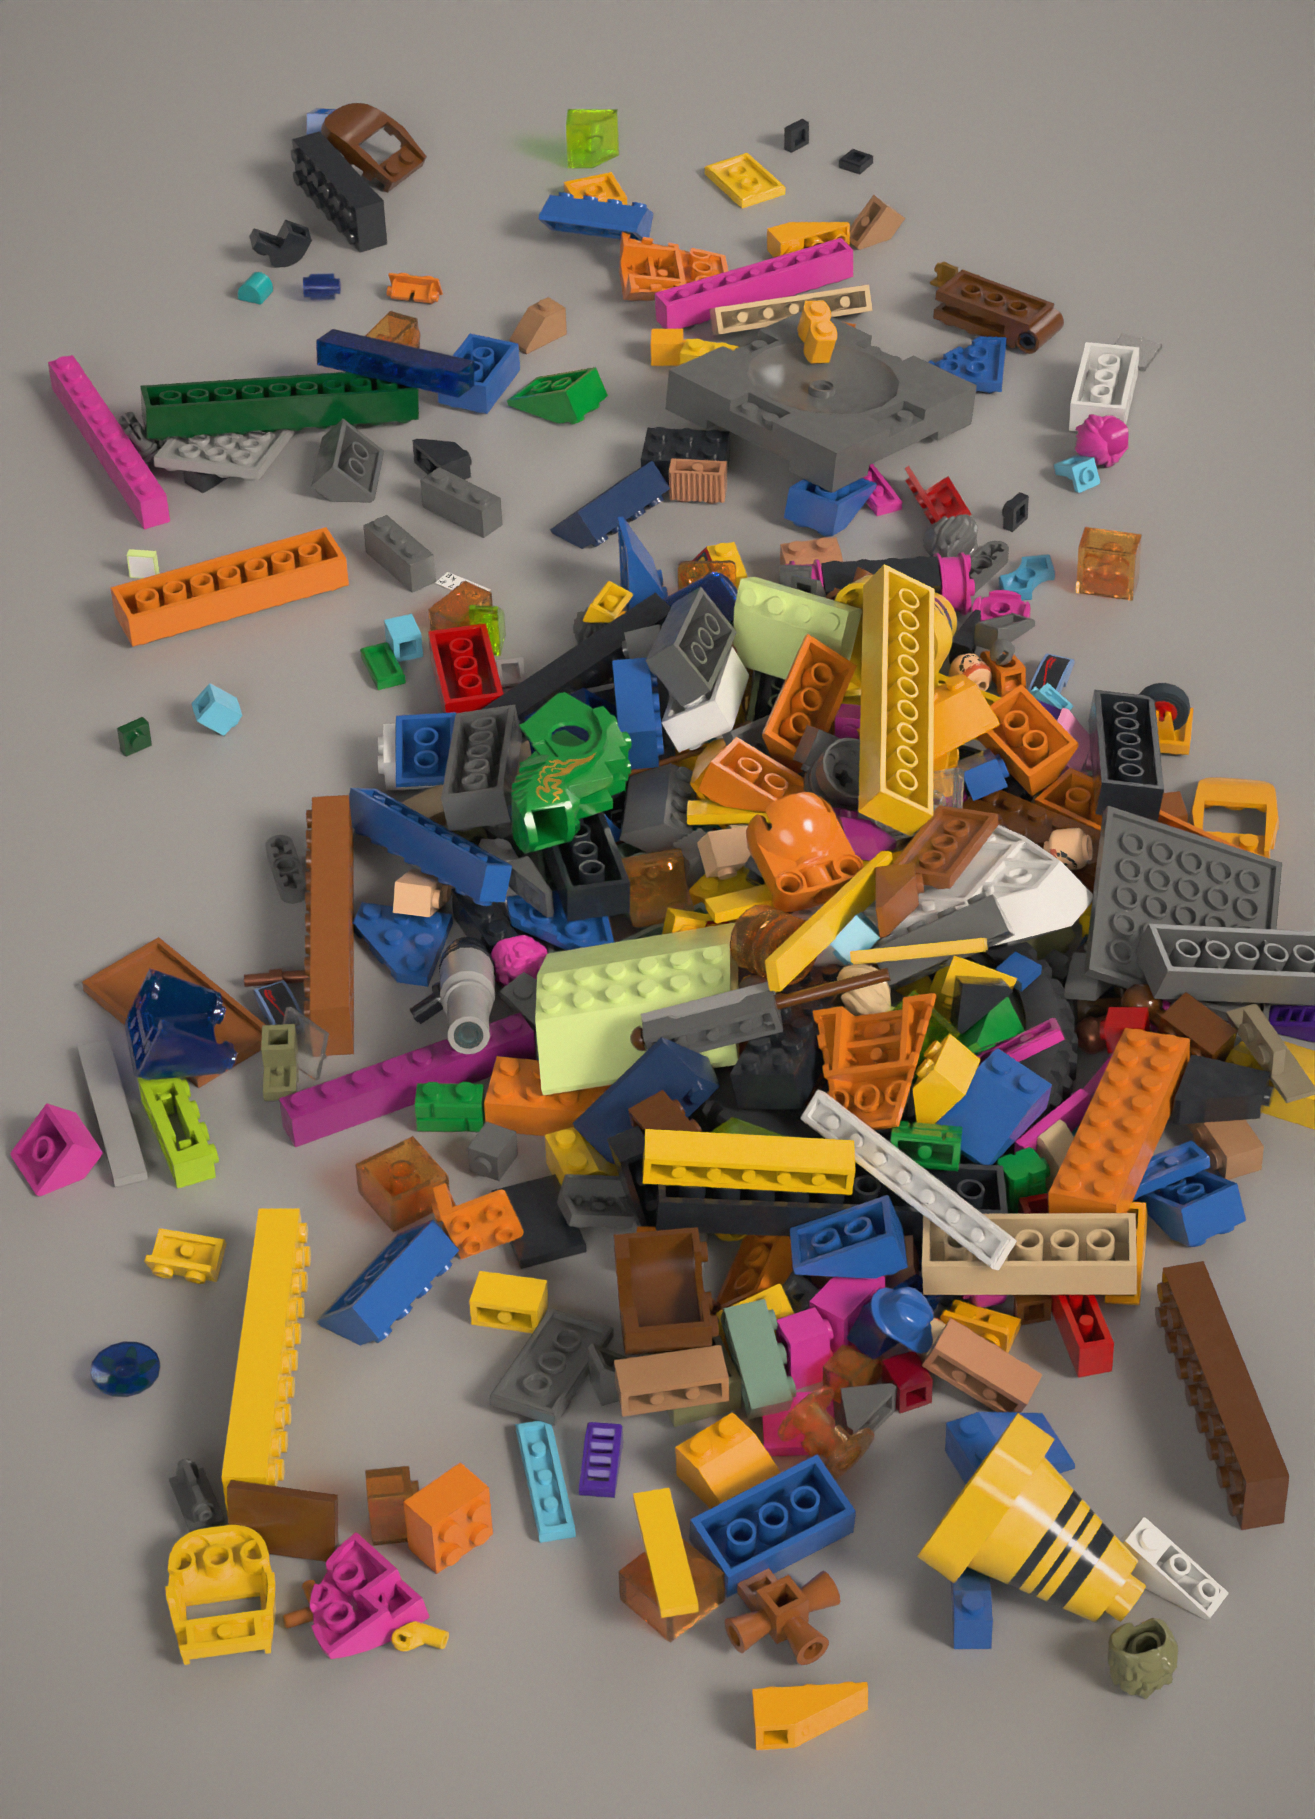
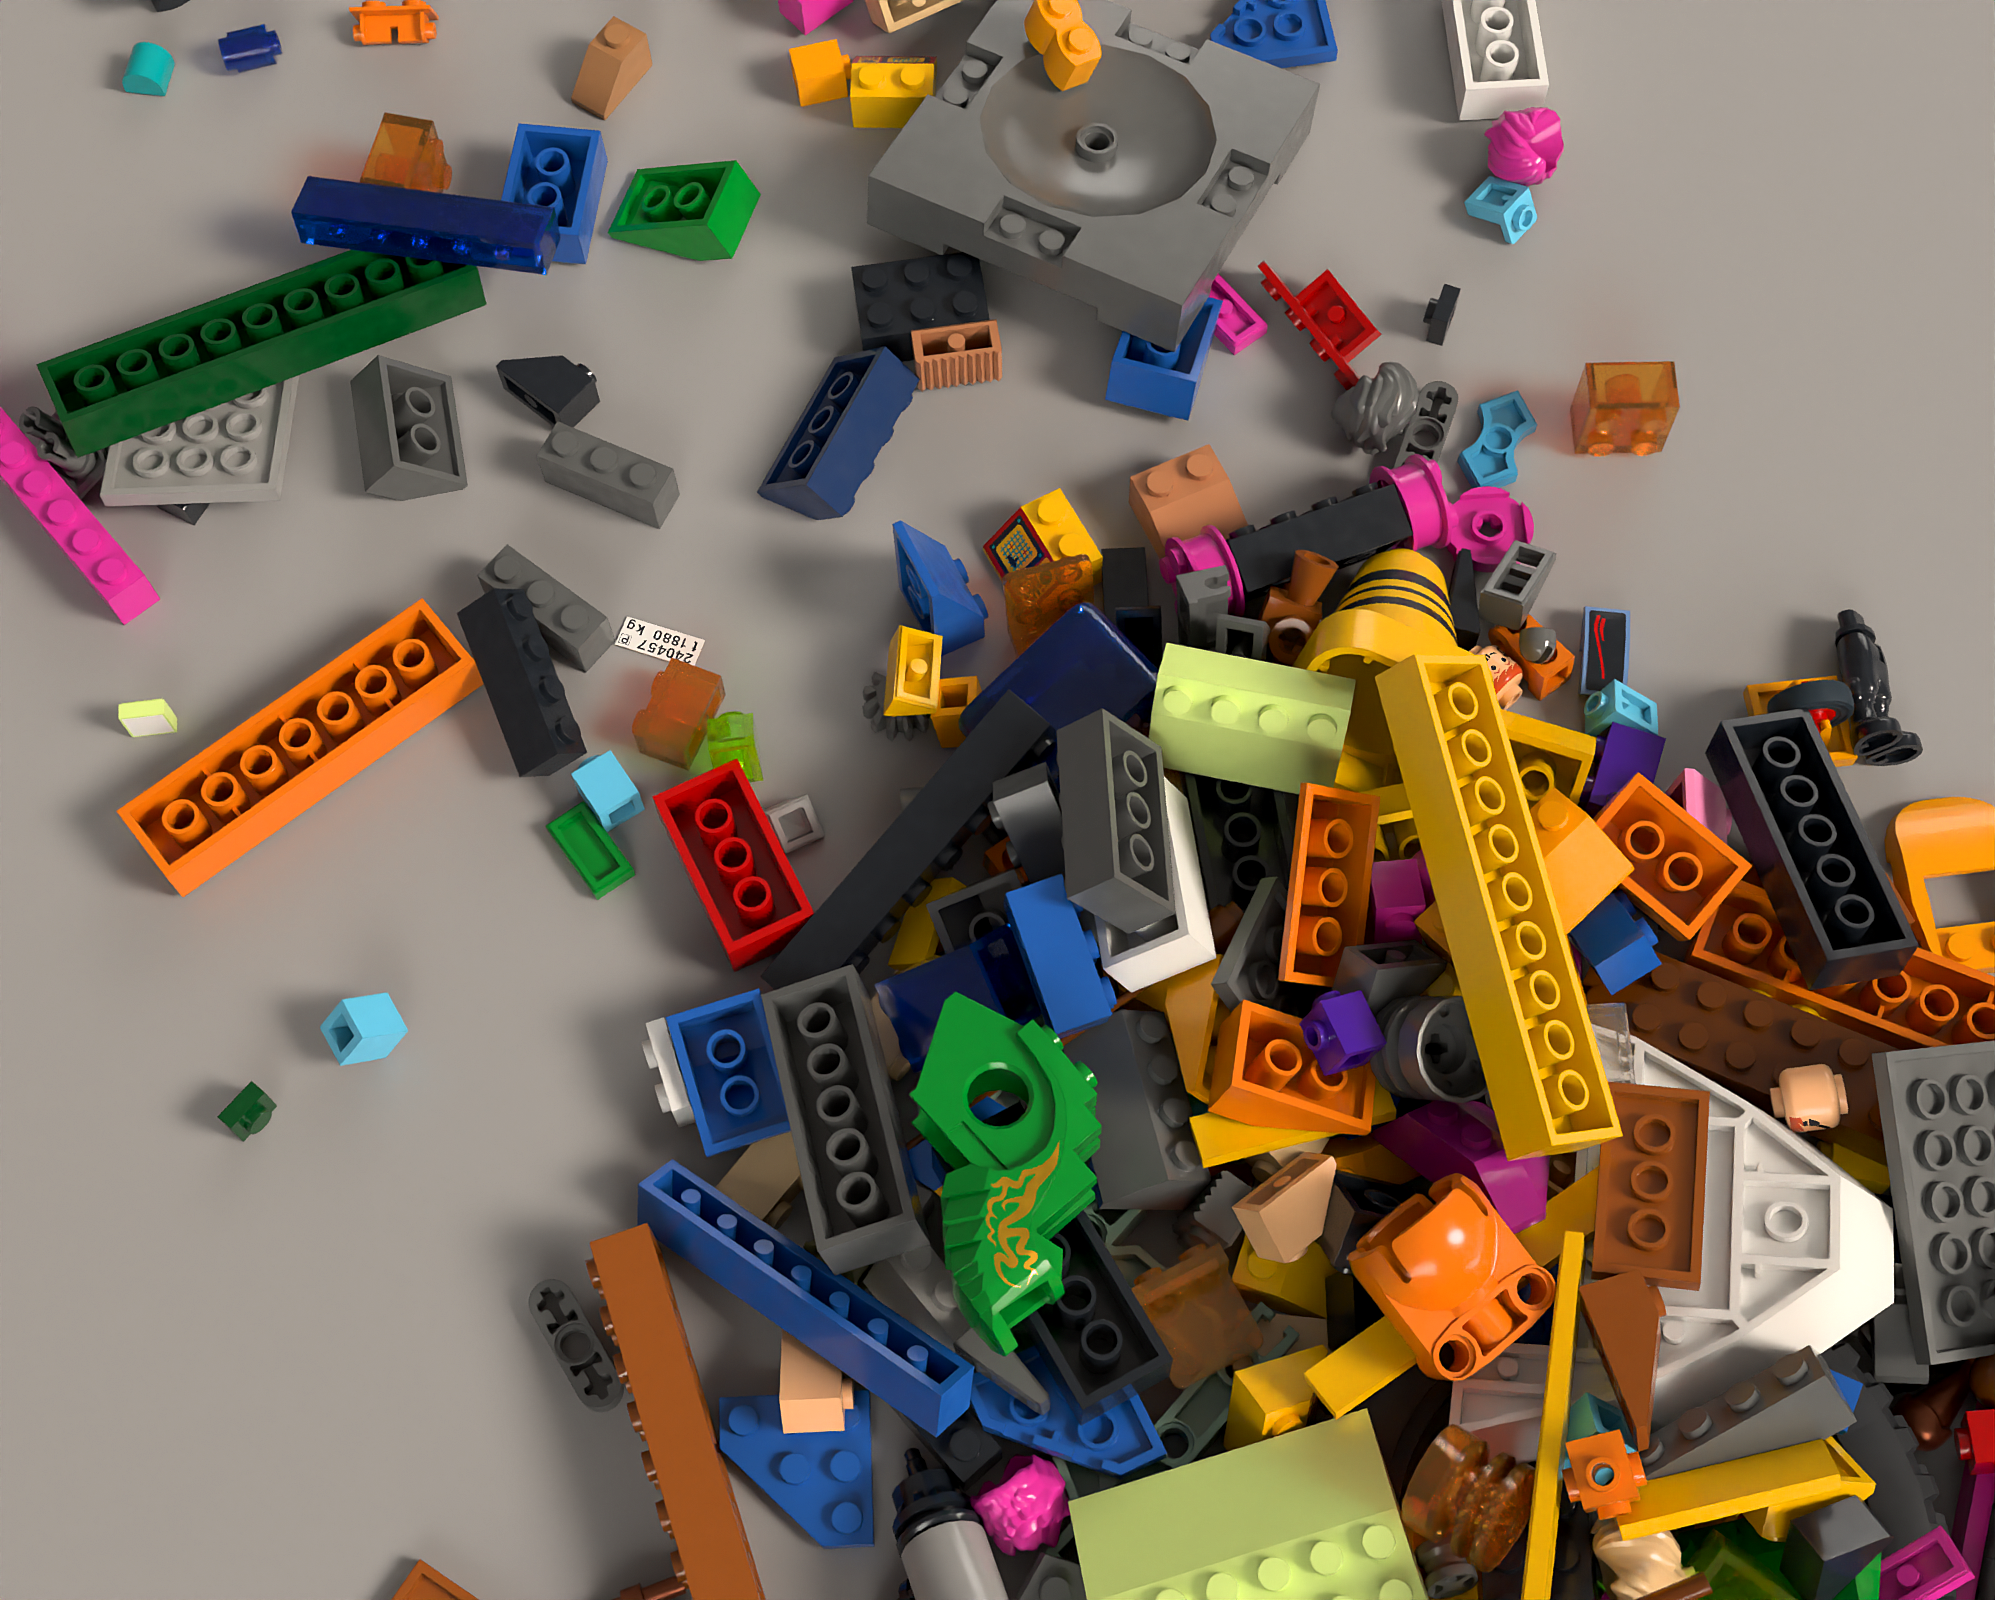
camera: 15 degrees left, 25 degrees up
(370, 575) = (521, 682): none -> black brick
(789, 760) = (1342, 1031): none -> dark purple brick
(849, 925) = (1597, 1453): none -> orange brick
(1210, 722) = (1866, 675): none -> black piece

